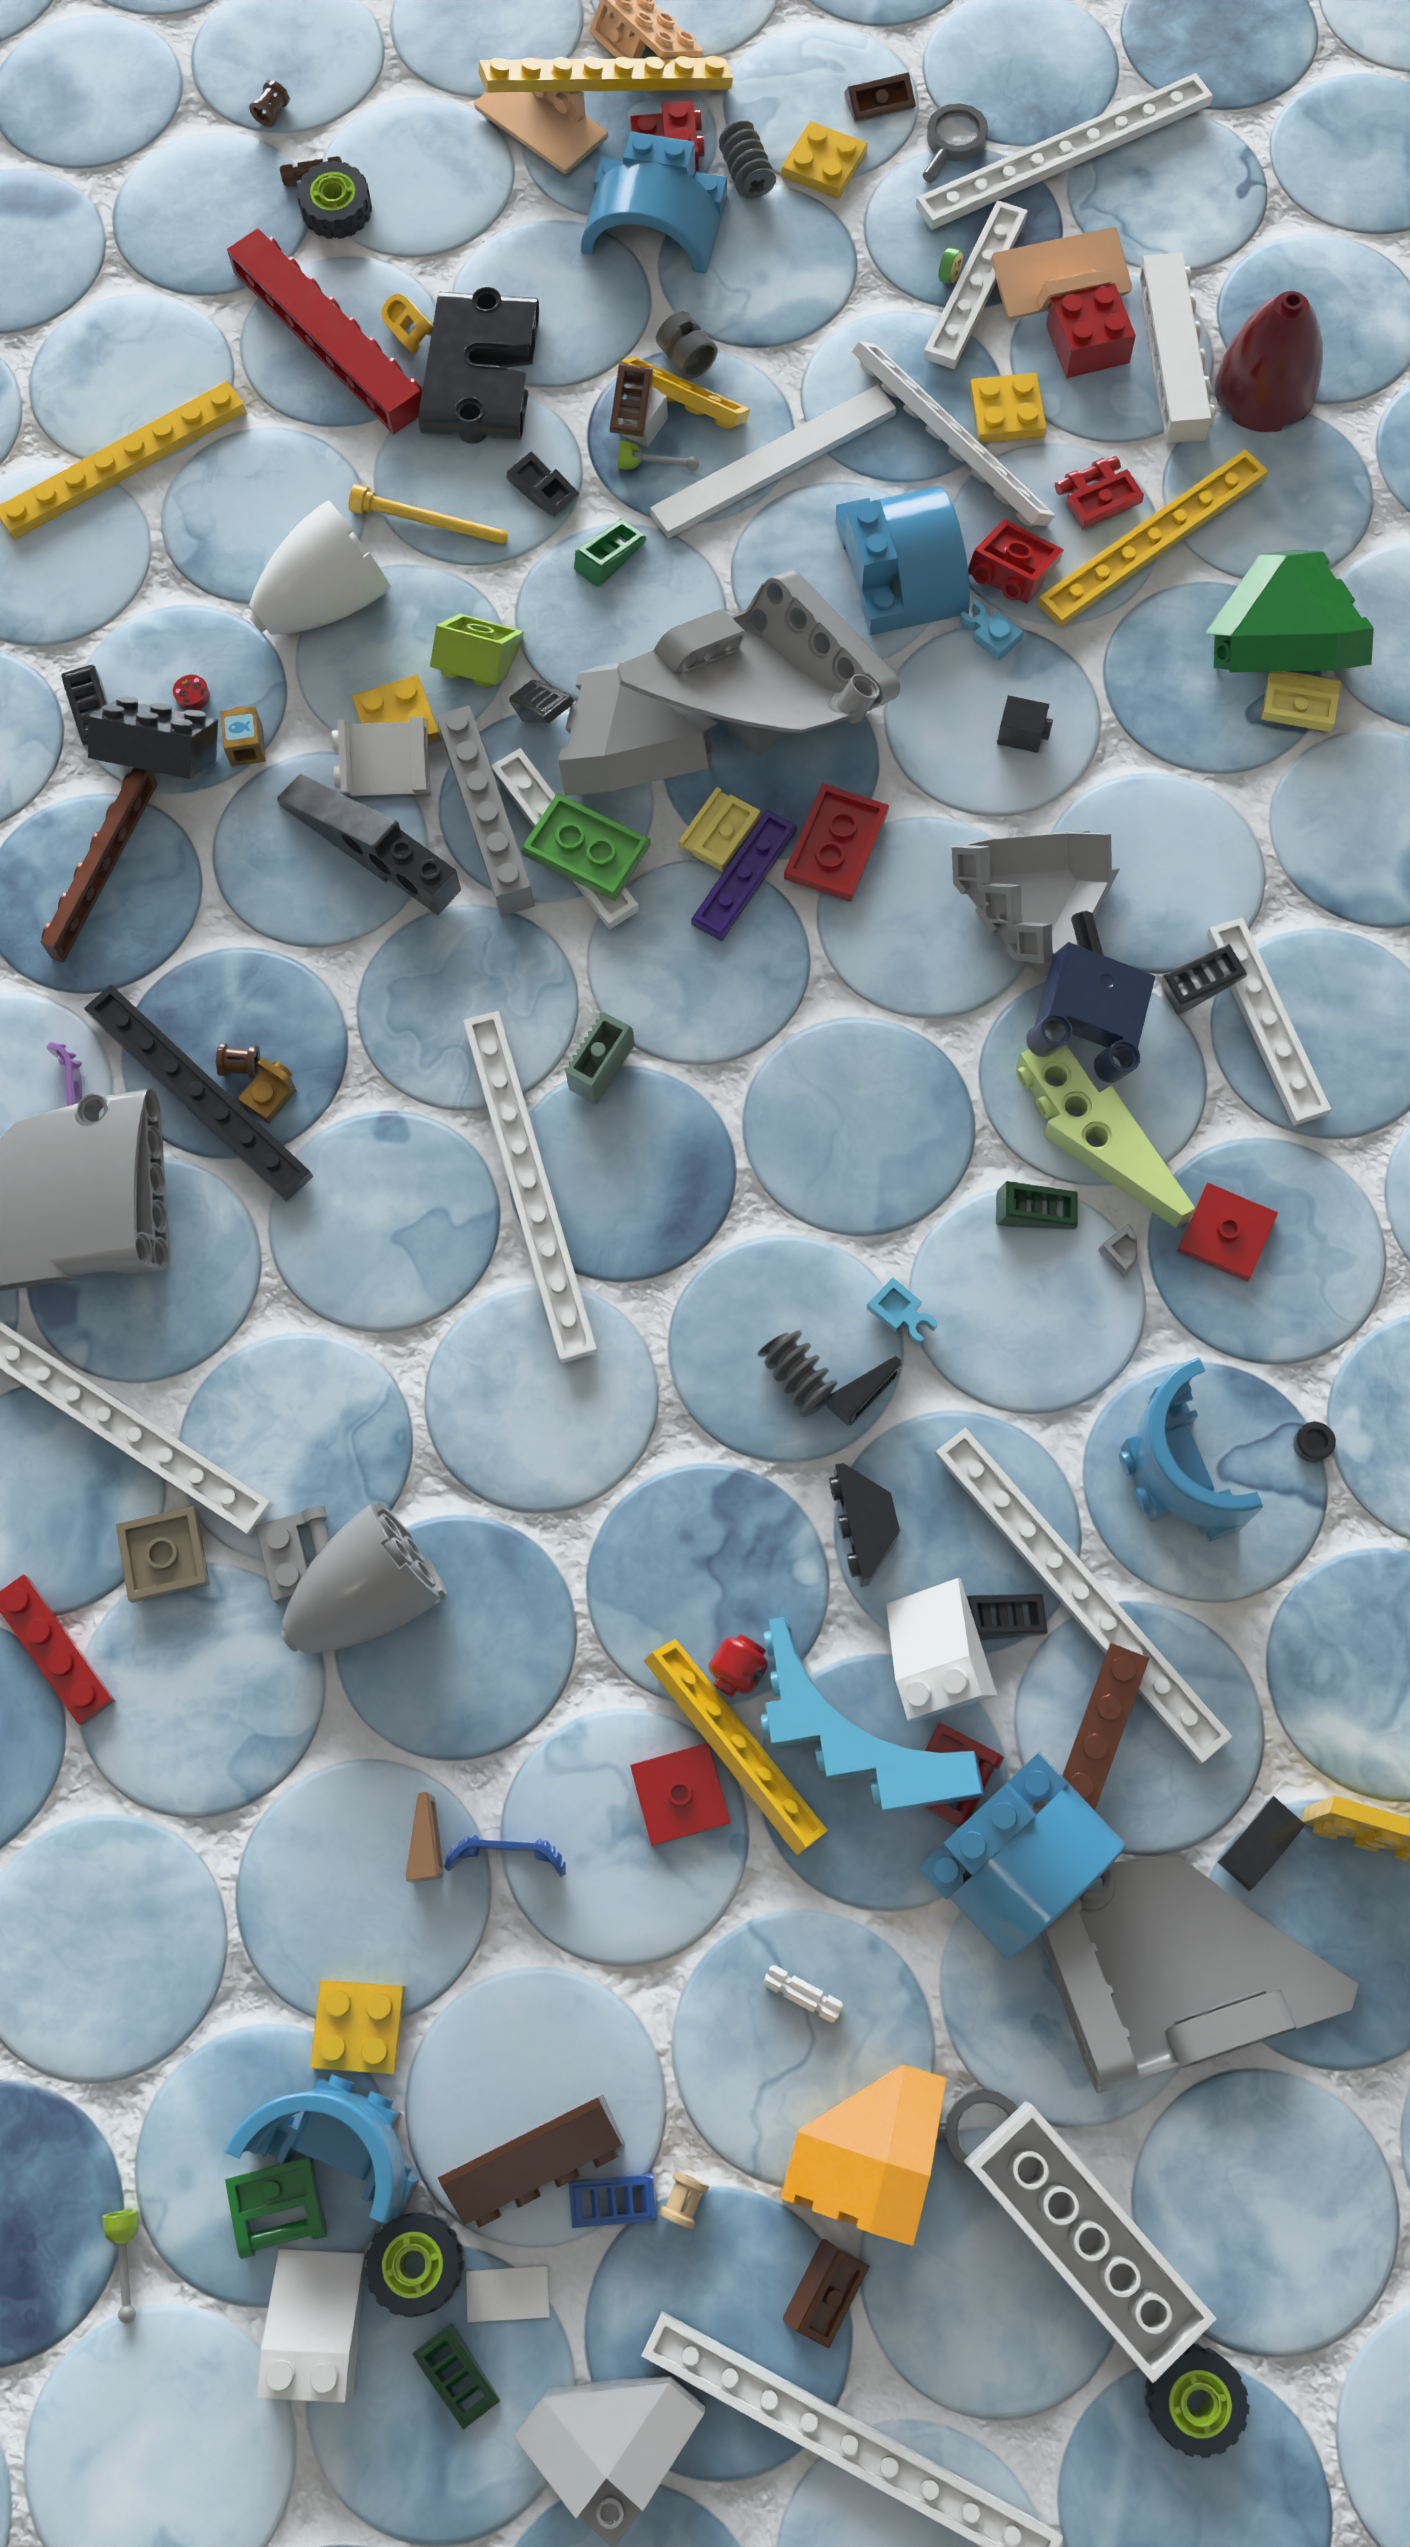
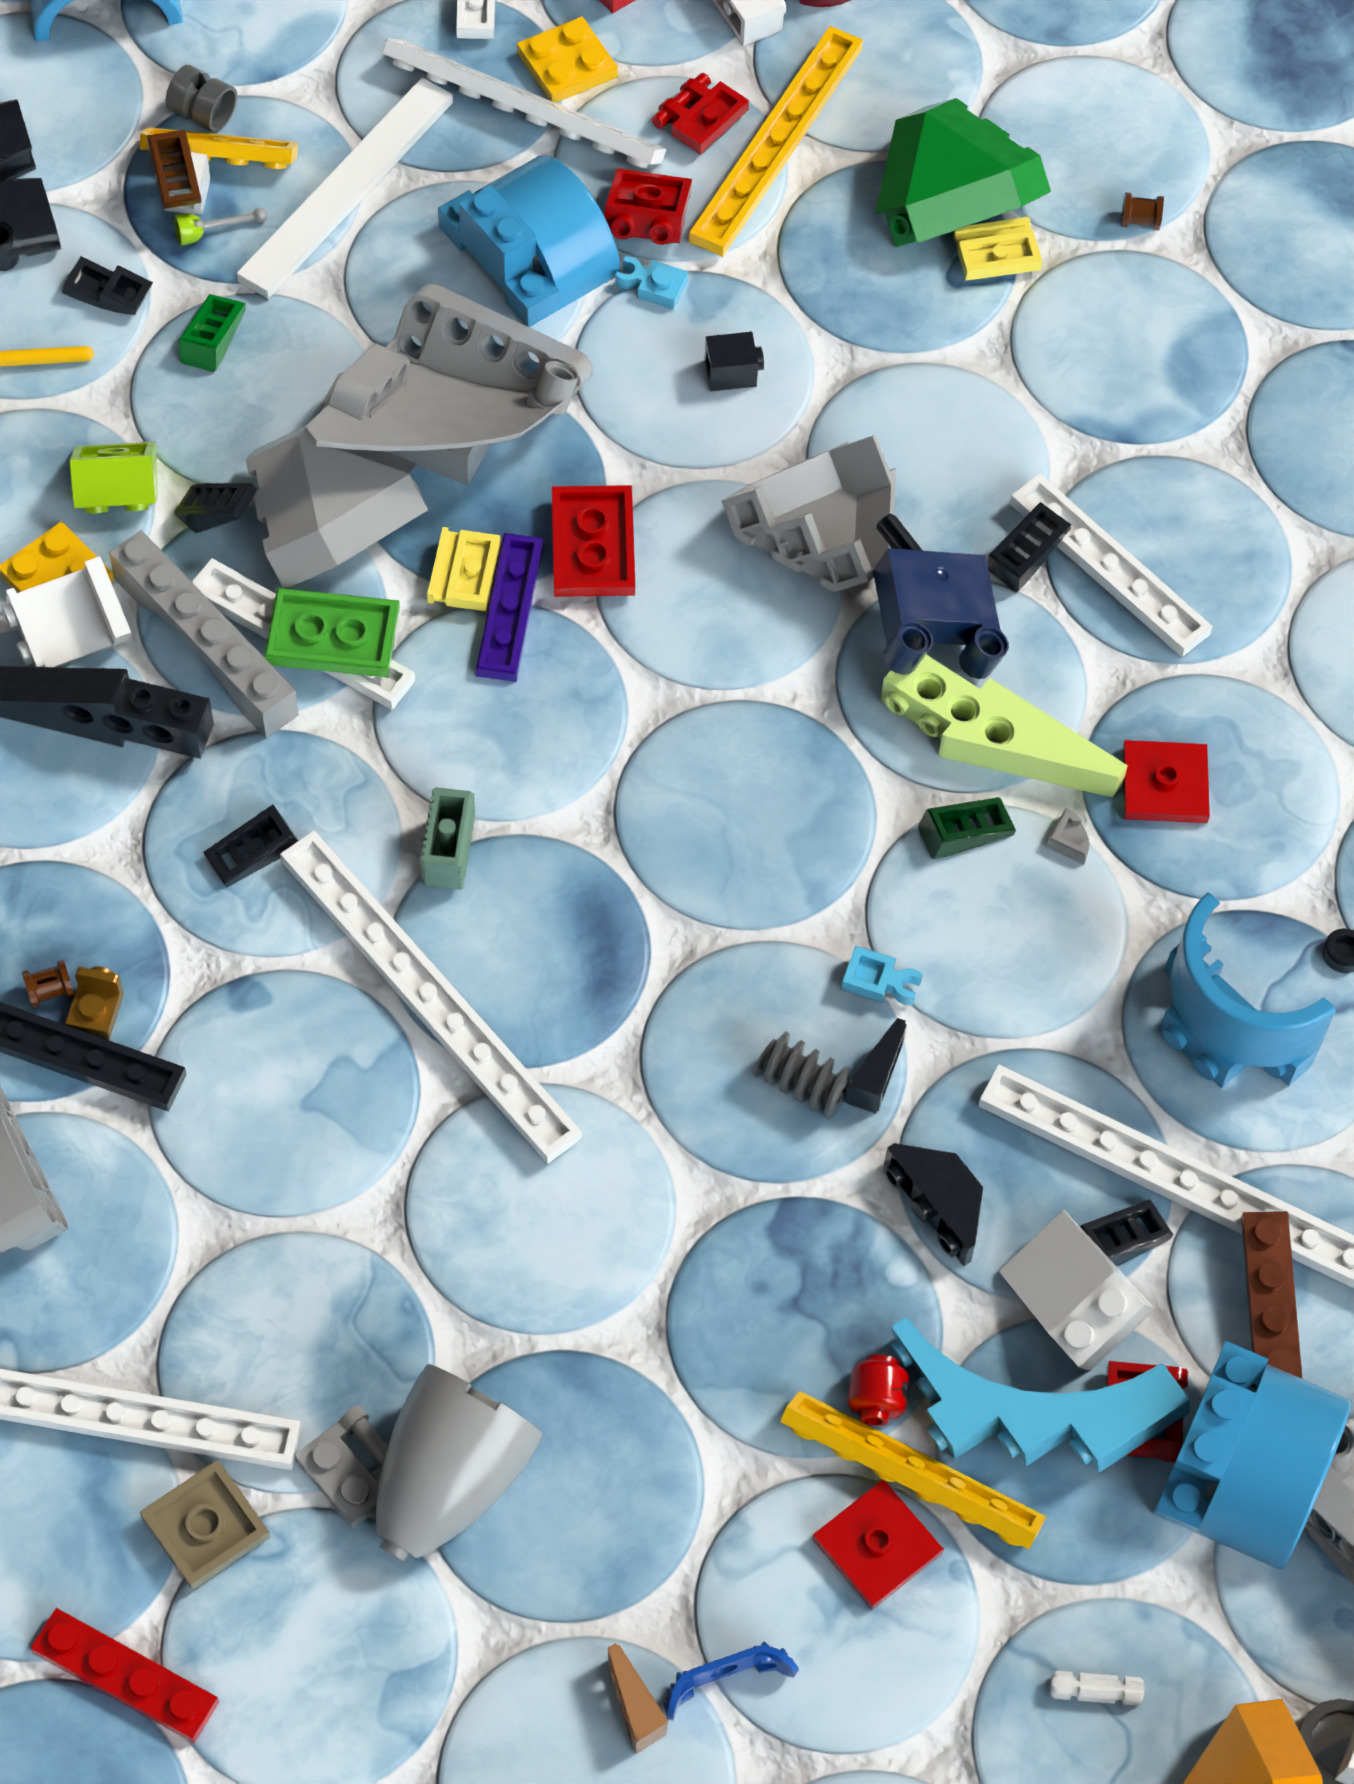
camera: 30 degrees left, 10 degrees down
(449, 1016) = (257, 826): none -> black slope

